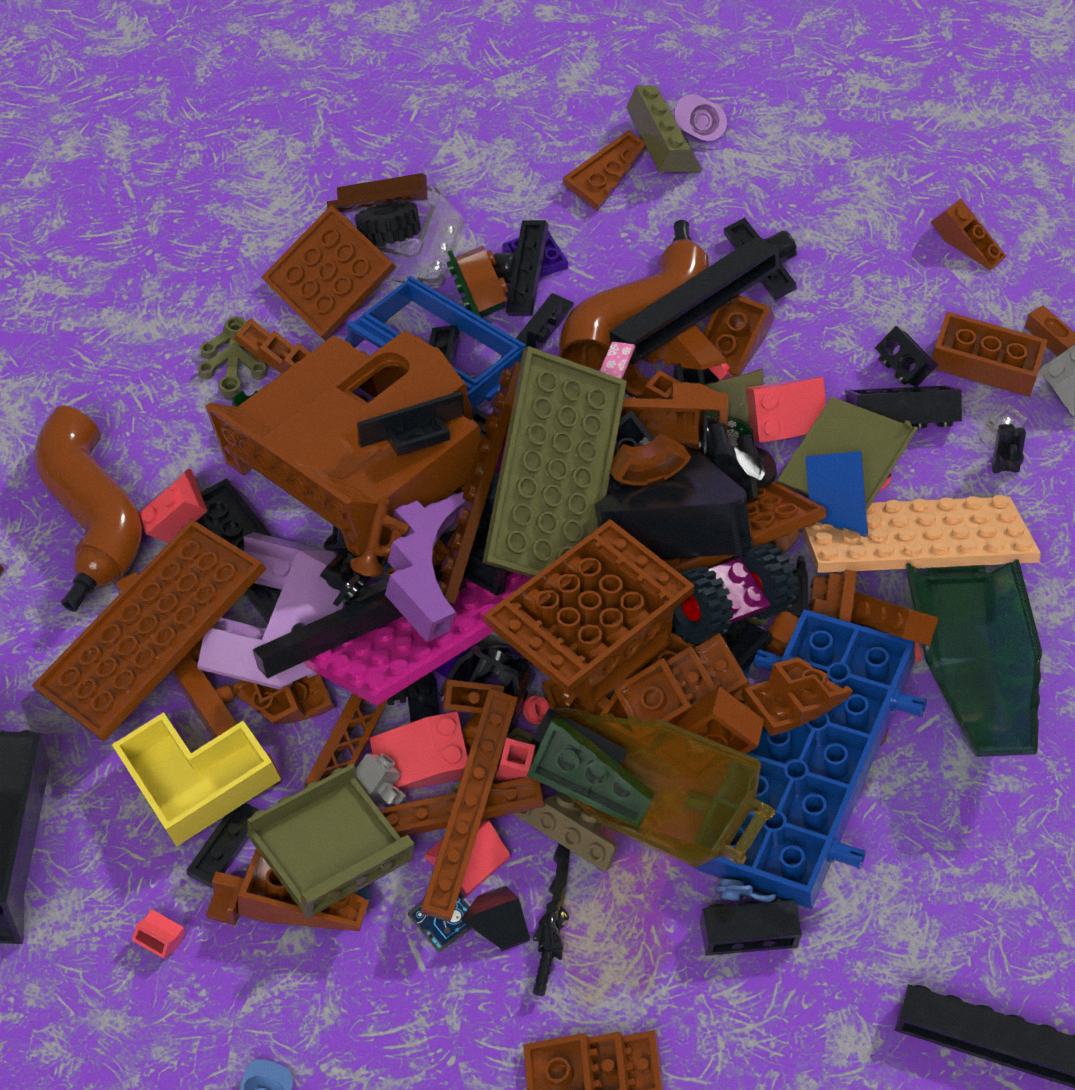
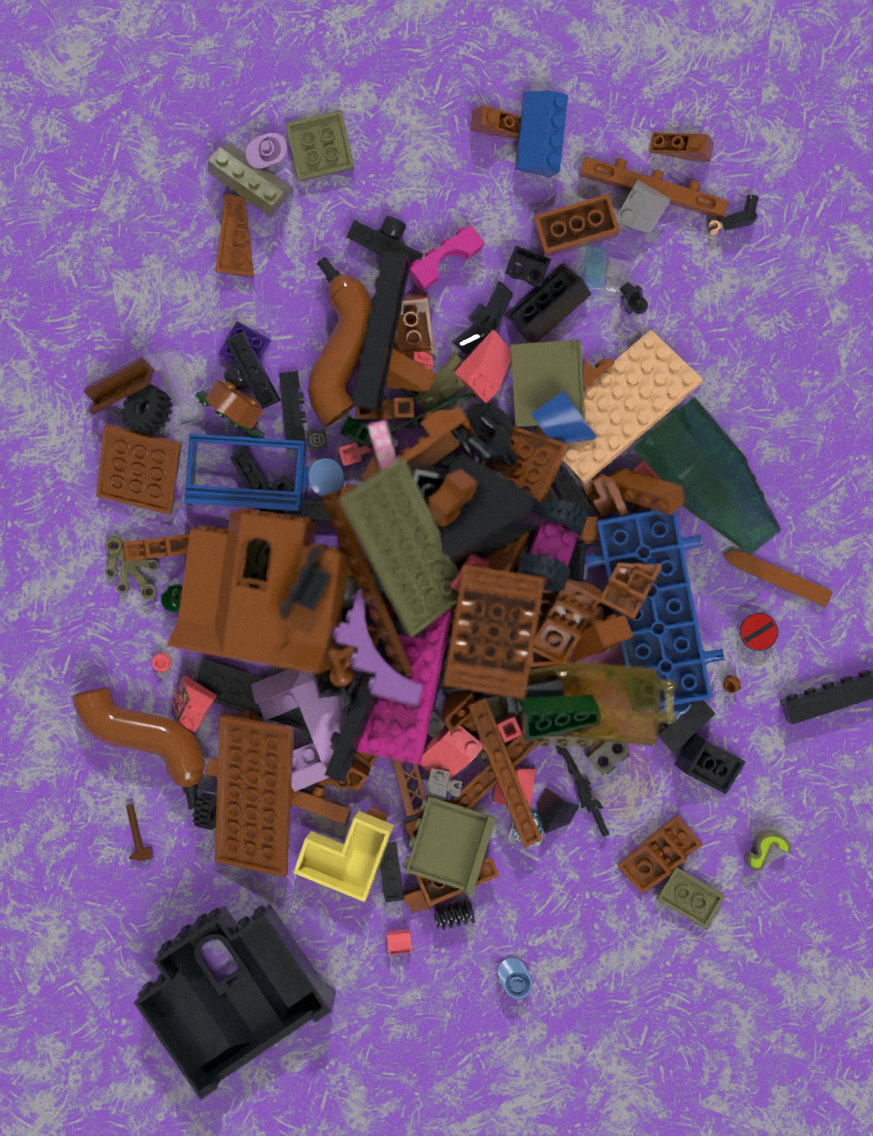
camera: 30 degrees left, 35 degrees up
(71, 610) = (205, 811): none -> black tyre
(176, 457) = (161, 662): none -> coral plate
(258, 948) = (452, 915): none -> black piece
(619, 886) = (604, 748): none -> dark grey brick
(750, 1001) = (709, 763): none -> black slope
(758, 151) = (320, 146): none -> olive plate
(834, 376) = (484, 319): none -> black plate
(847, 301) = (464, 244): none -> dark pink arch
(848, 924) = (731, 684): none -> dark orange plate
(906, 490) = (591, 374): none -> dark orange slope
(929, 884) = (758, 631): none -> red piece
(983, 406) = (595, 268): none -> clear light blue plate
(1001, 847) = (779, 577): none -> dark orange piece
(1007, 261) = (541, 132): none -> blue slope

